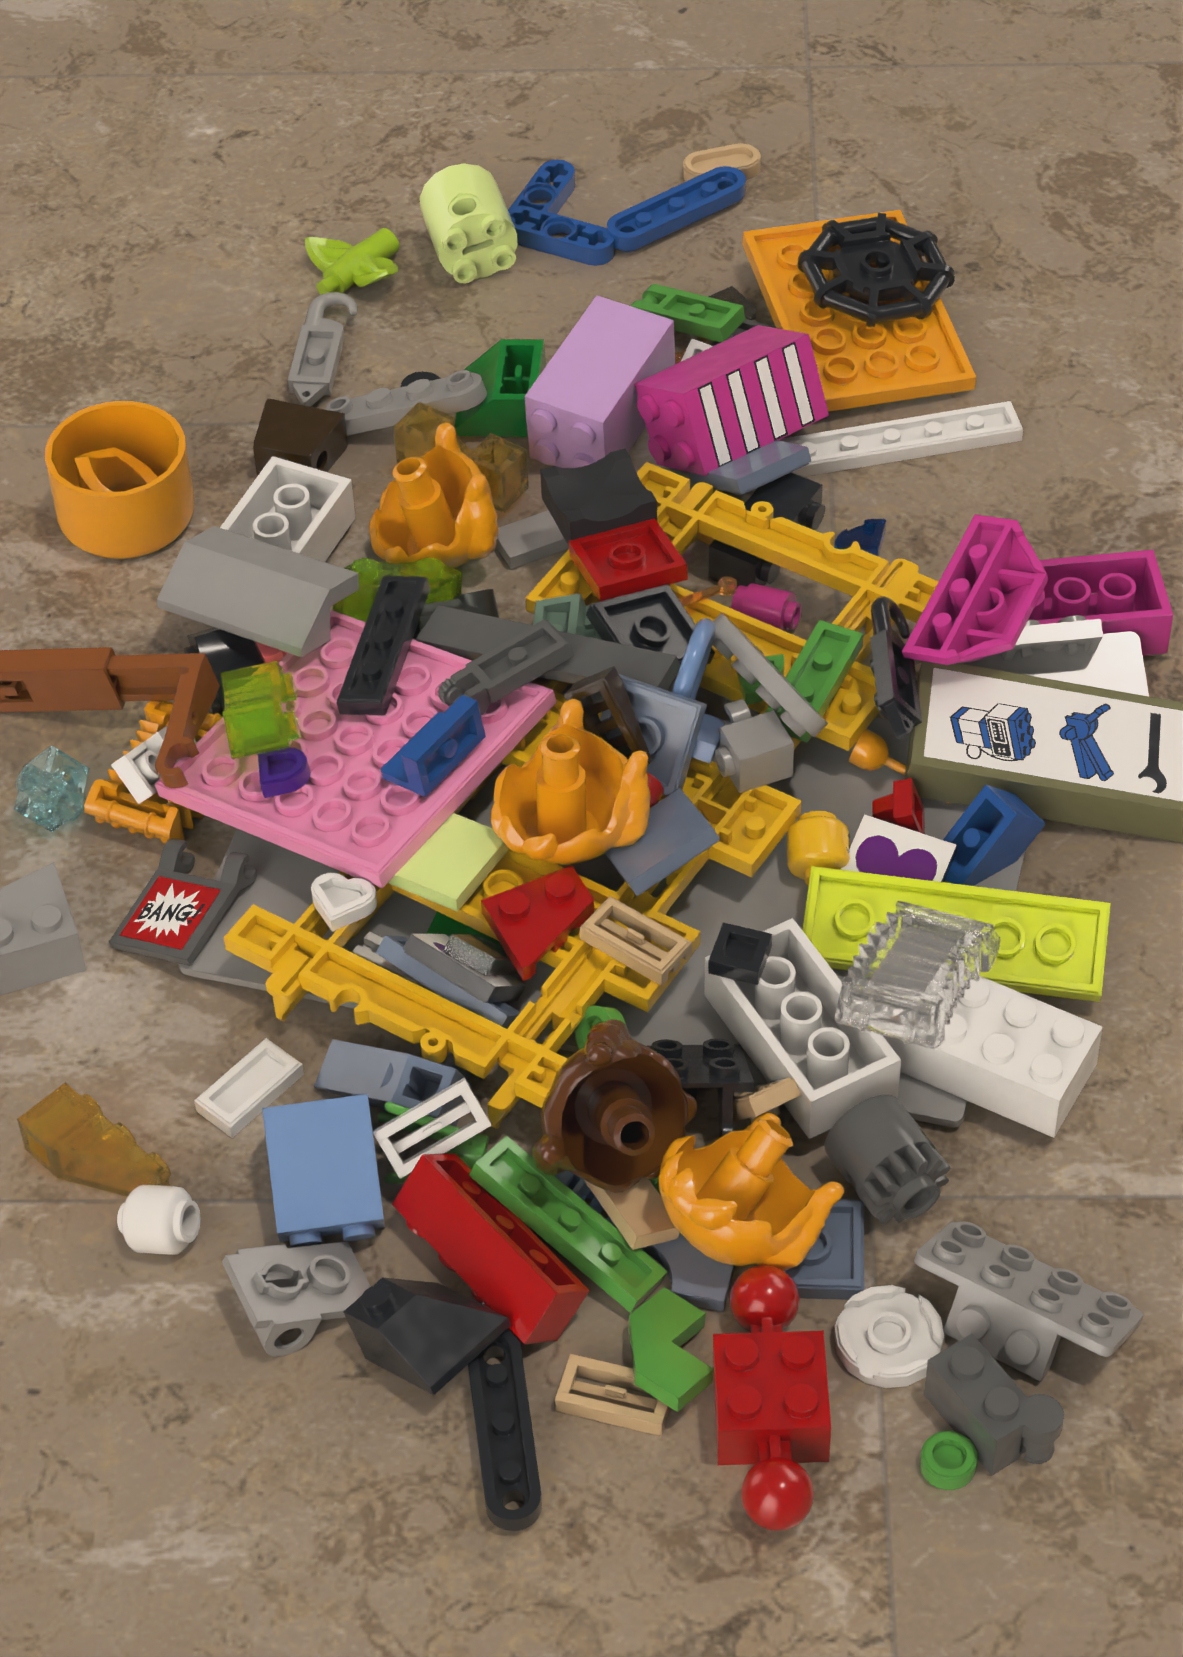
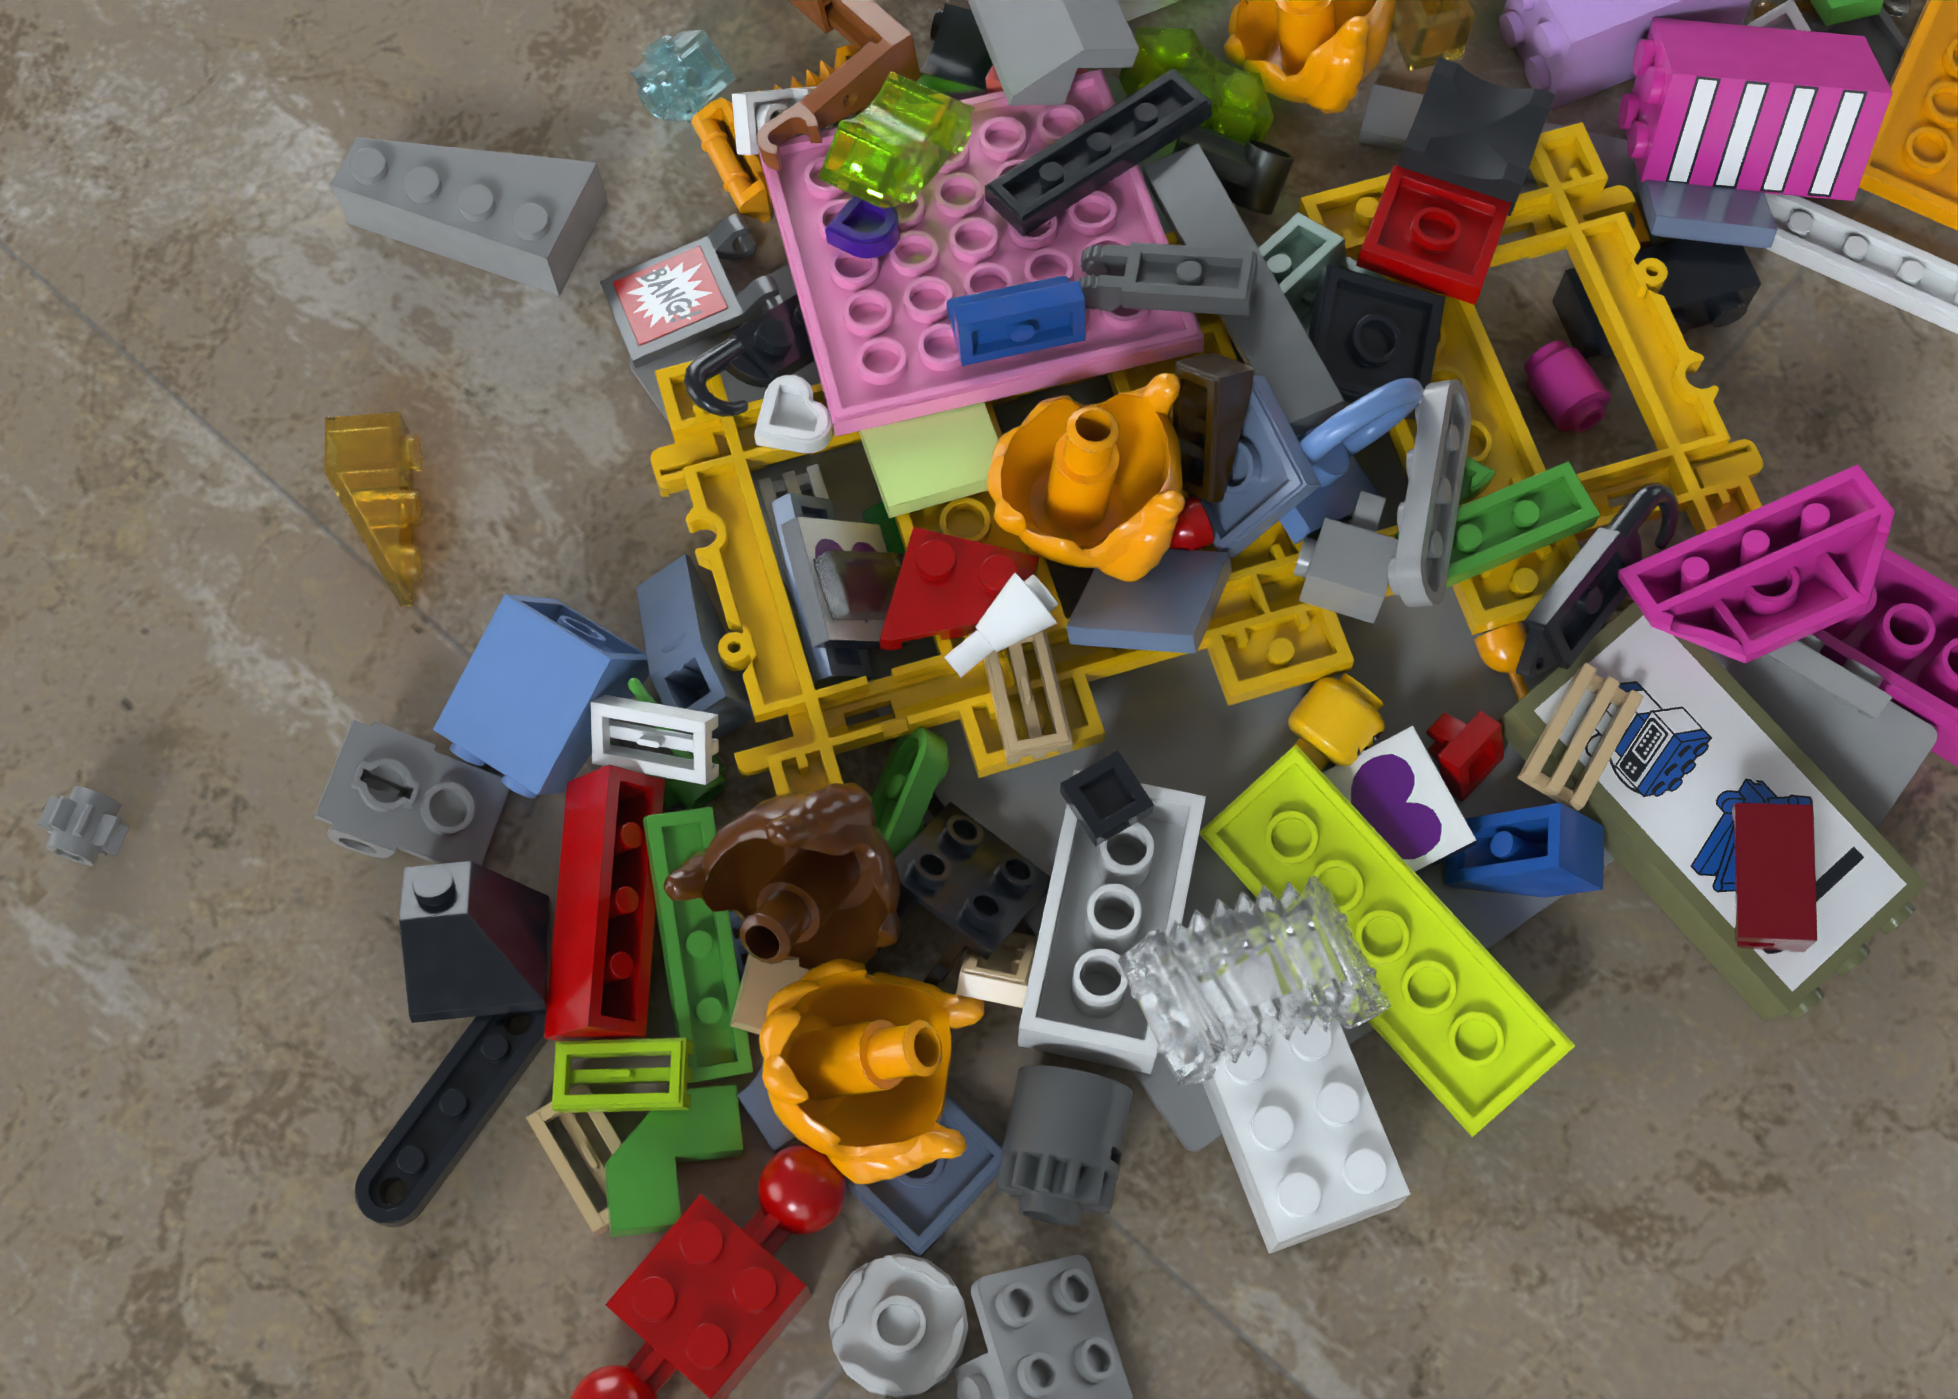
camera: 40 degrees right, 20 degrees up
(90, 1461) = (83, 825): none -> light grey gear
(159, 1219) = (362, 622): white head -> none
(249, 1087) = (577, 541): white tile -> none
(281, 881) = (754, 354): none -> black plate
(595, 890) = (1013, 616): none -> white cone
(609, 1336) = (677, 1075): none -> lime tile
(726, 586) = (1519, 340): clear orange hinge -> none
(869, 536) = (1758, 377): clear blue tile -> none
(957, 720) = (1606, 692): none -> tan tile
(1130, 743) = (1774, 876): none -> dark red hinge

